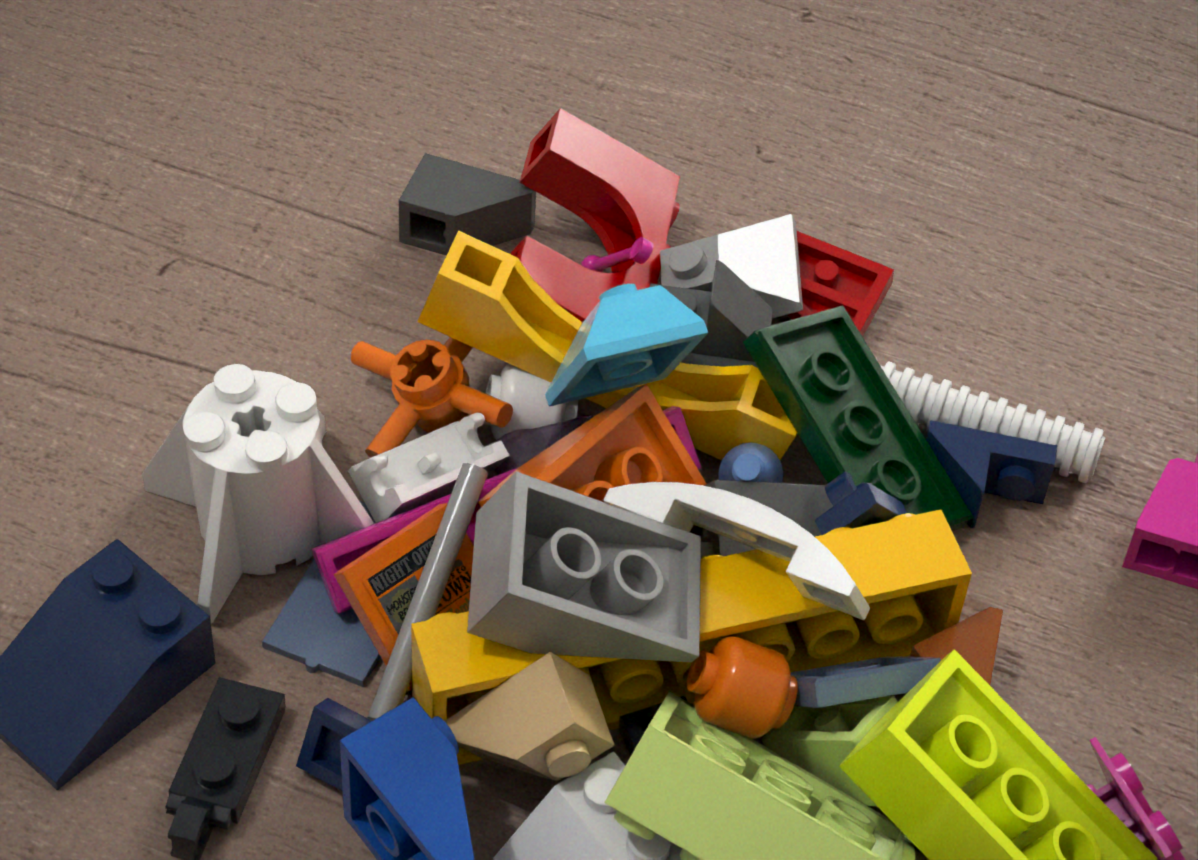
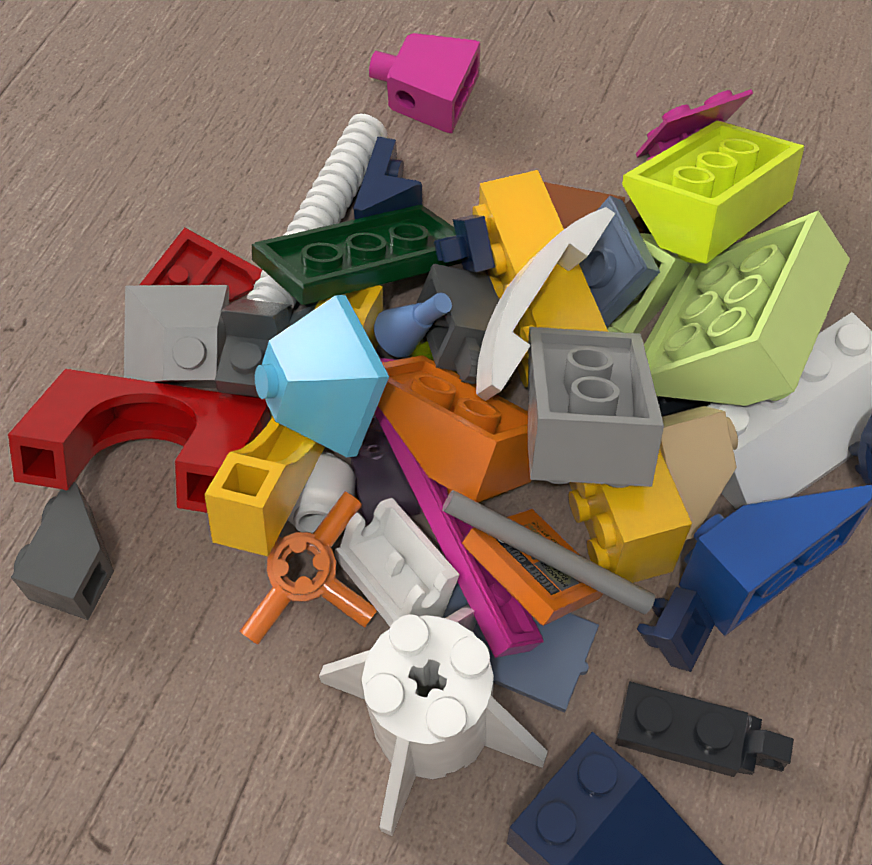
camera: 85 degrees left, 10 degrees up
(638, 252) = (176, 386): dark pink hinge -> none
(742, 687) = (636, 312): orange head -> none

